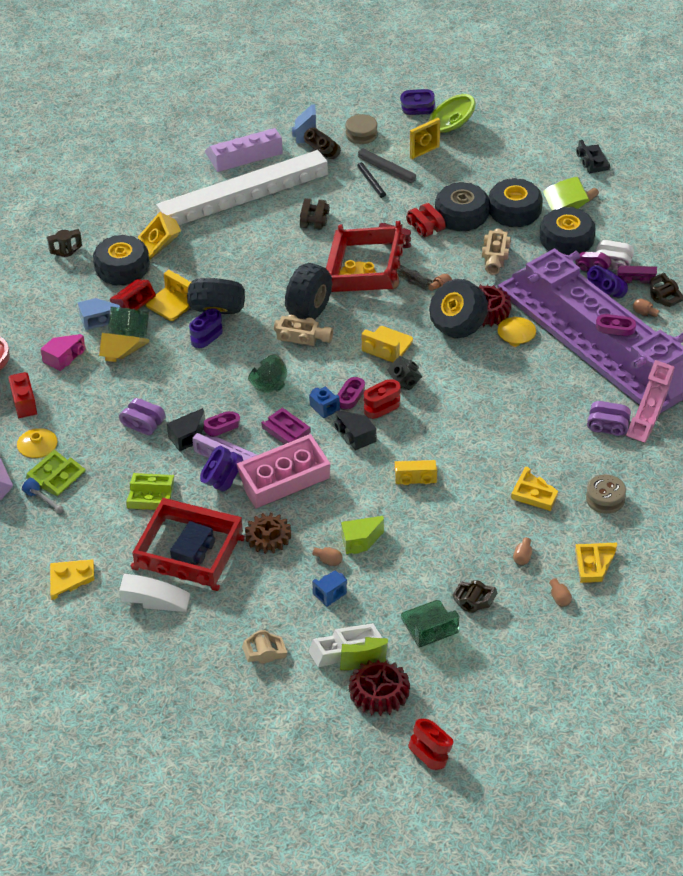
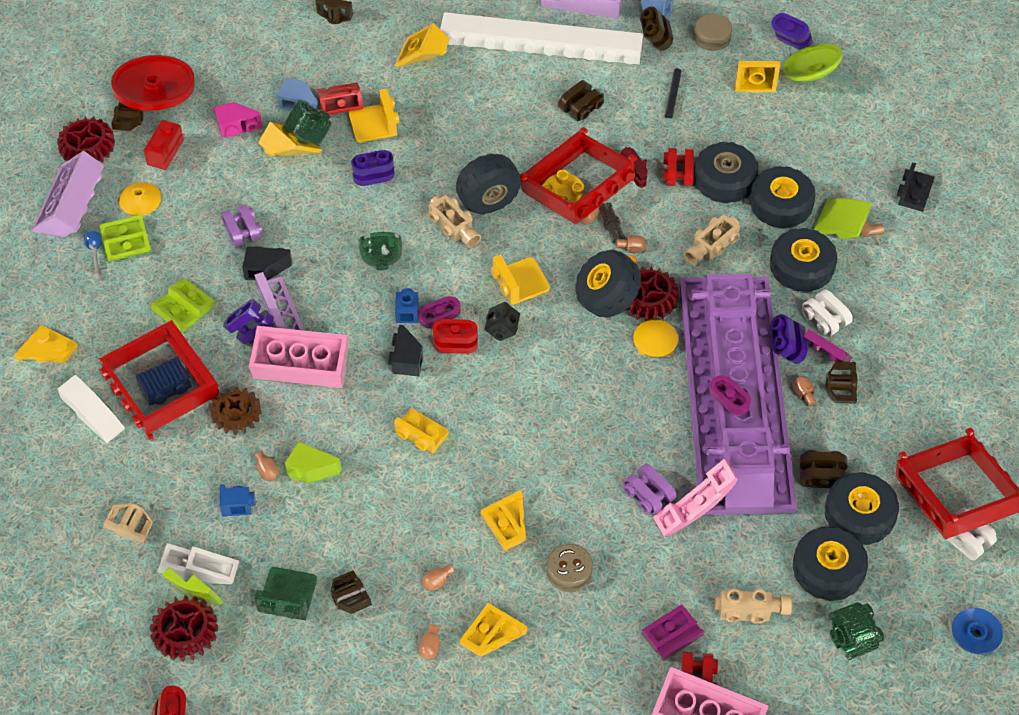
camera: 35 degrees right, 10 degrees up
(121, 260) = (365, 54): black wheel -> none
(217, 294) = (401, 141): black wheel -> none
(221, 423) = (298, 274): magenta plate -> none
(285, 426) = (350, 312): magenta plate -> none
(387, 165) = (702, 86): dark grey axle -> none
(590, 259) = (796, 307): magenta plate -> none

